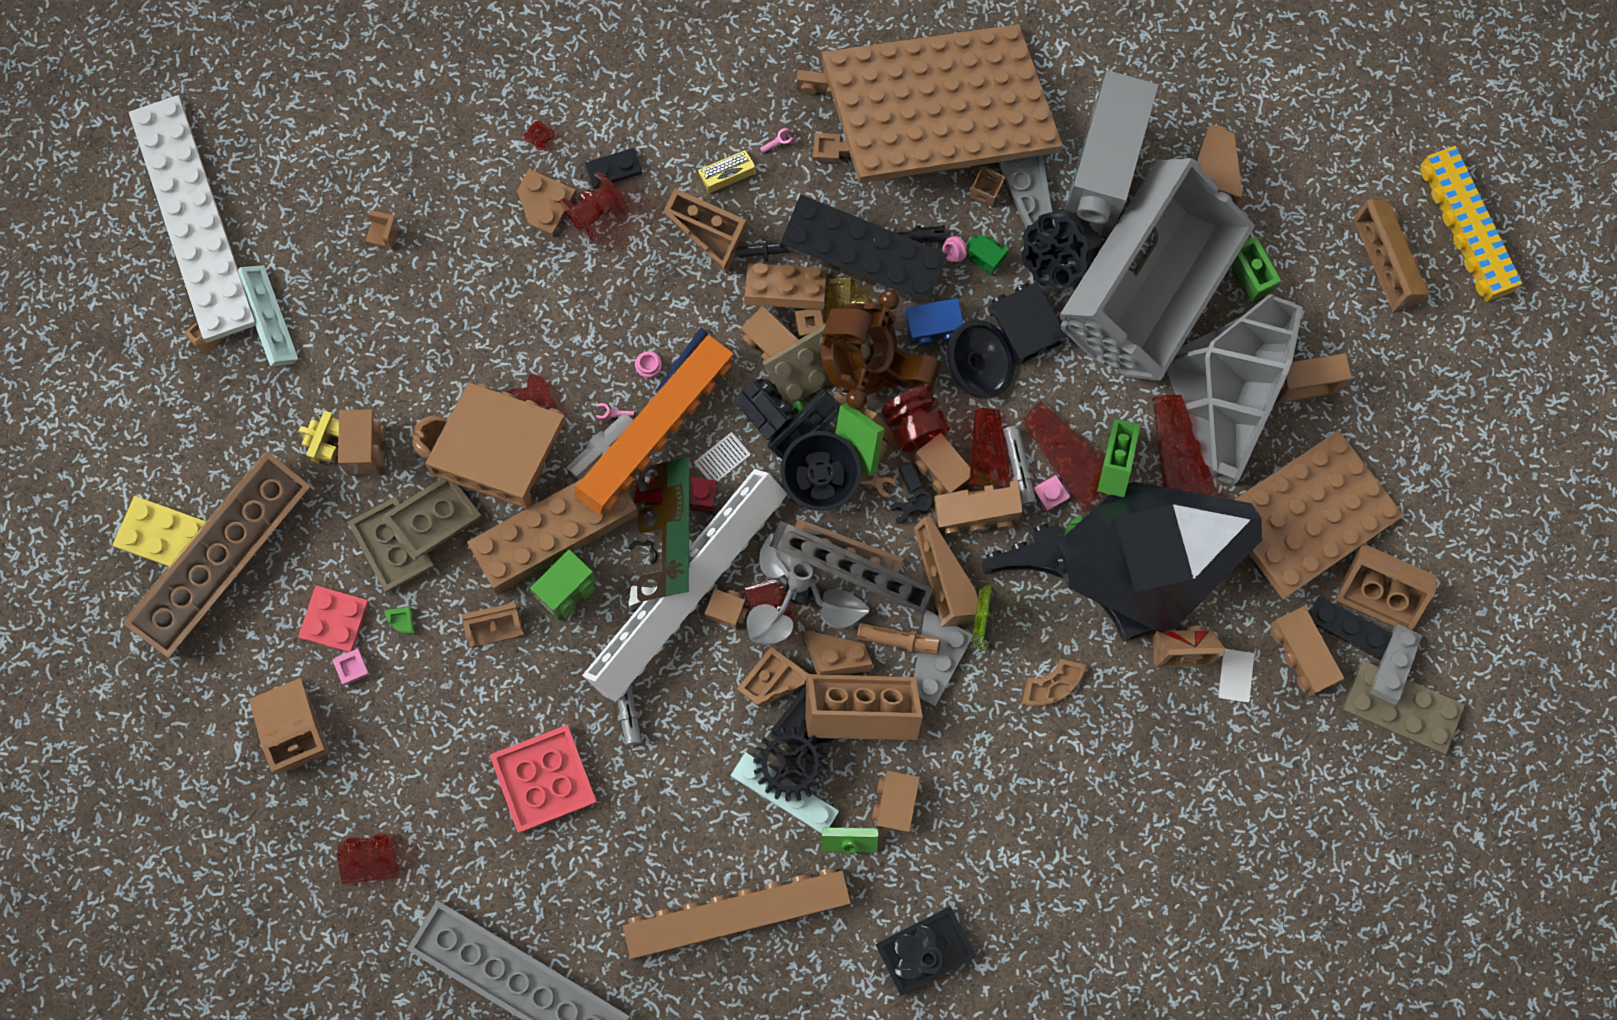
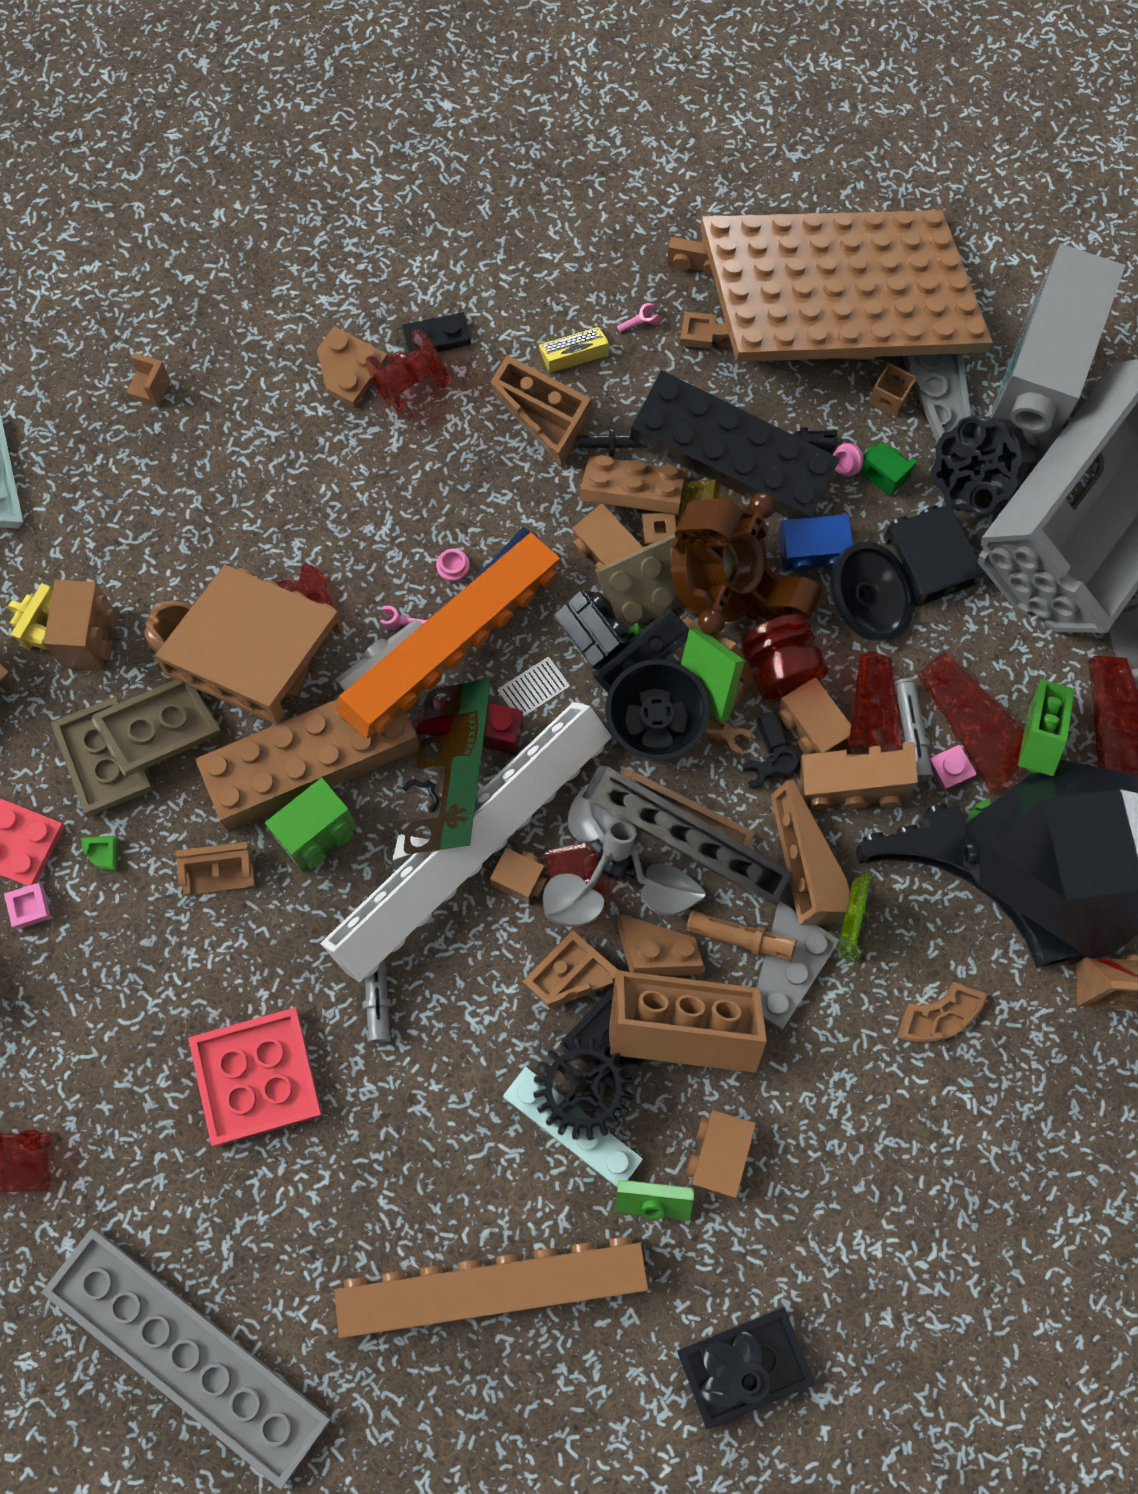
camera: 10 degrees right, 5 degrees down
(538, 128) = (349, 282): clear red plate -> none

